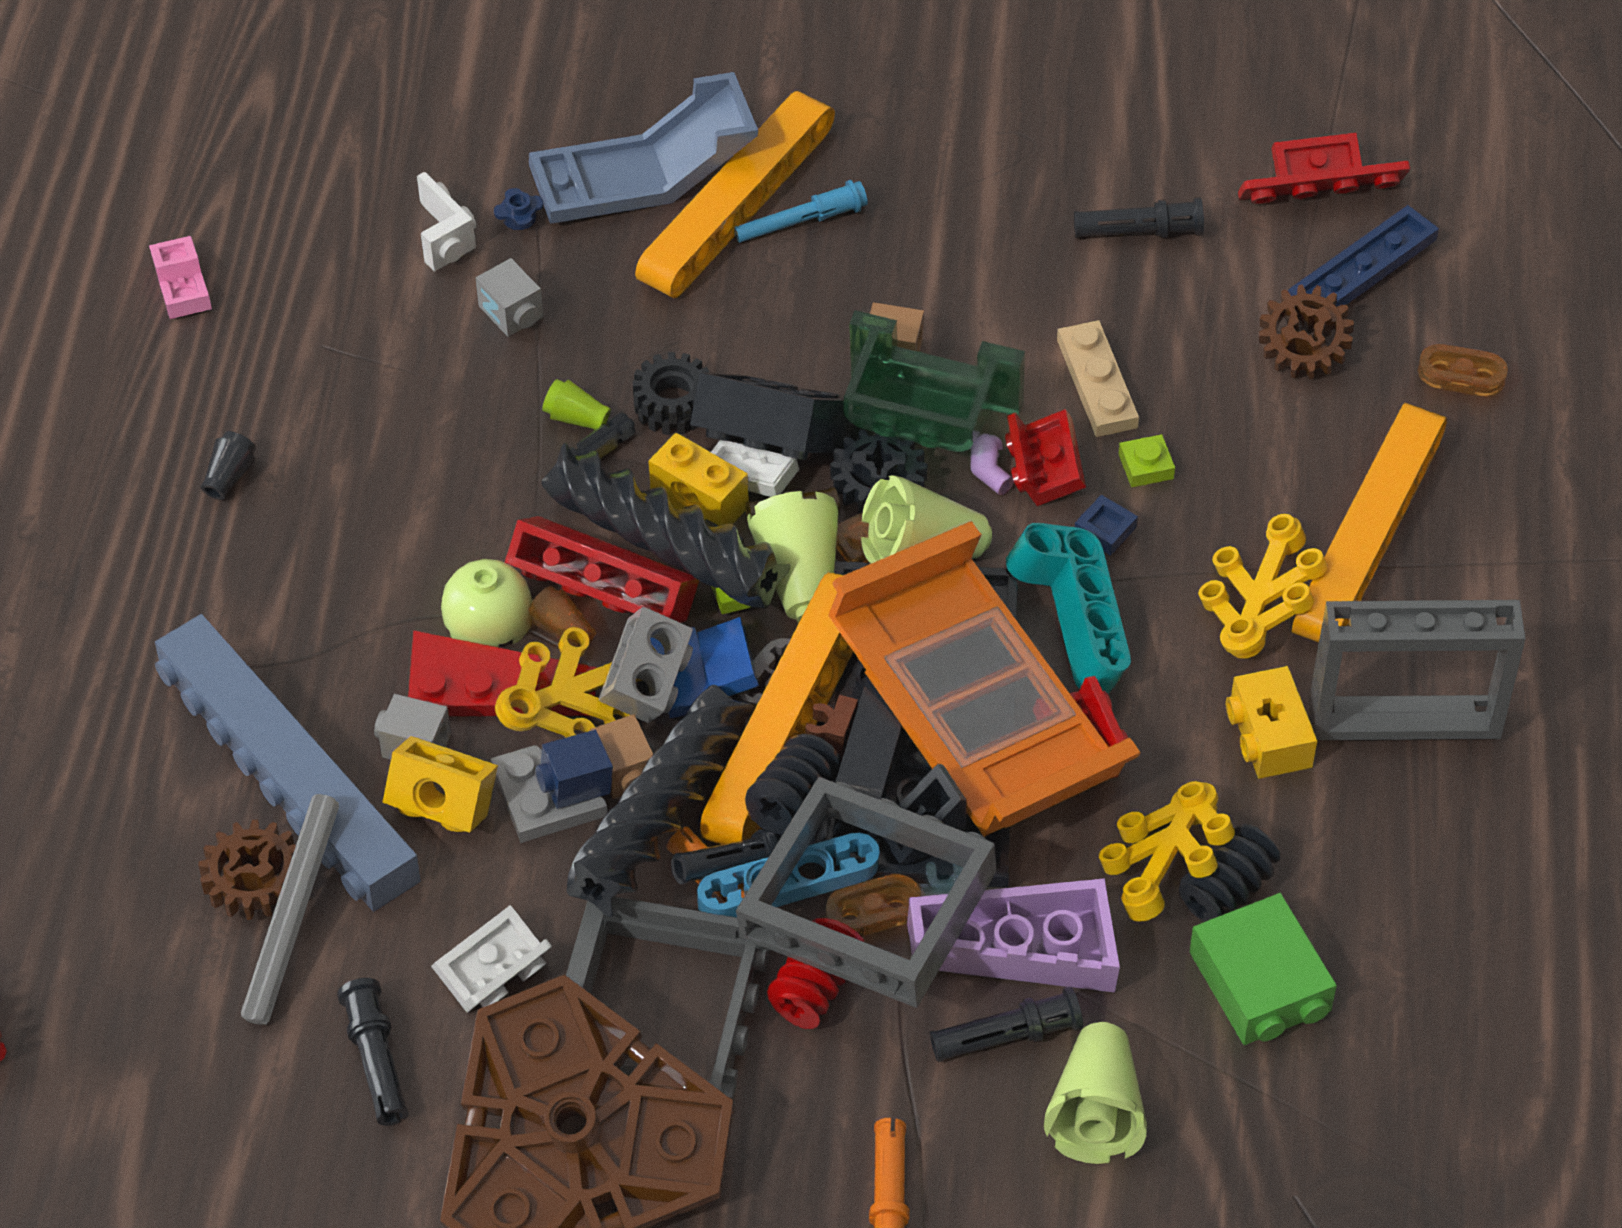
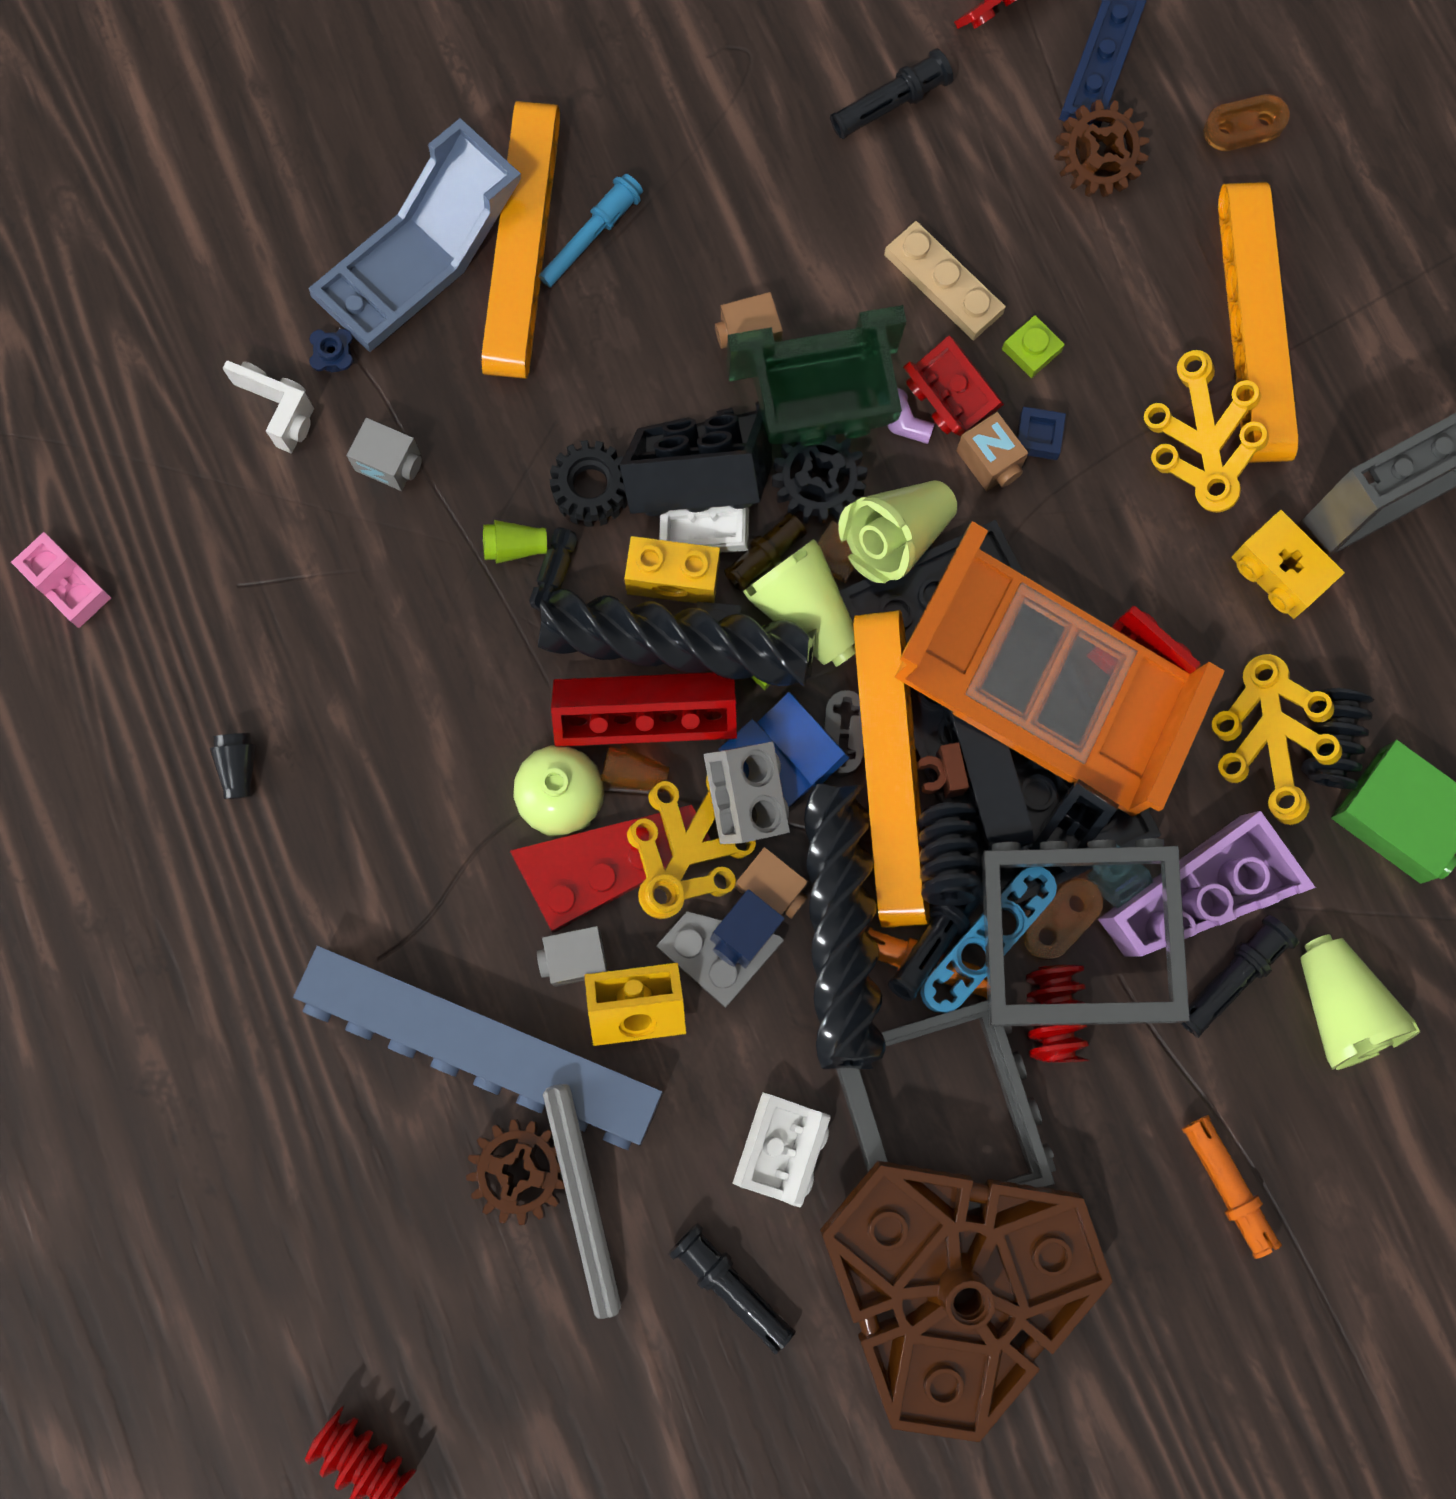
camera: 30 degrees left, 25 degrees up
(1049, 504) = (992, 452): none -> medium nougat brick
(1083, 595) = (1072, 528): teal beam -> none

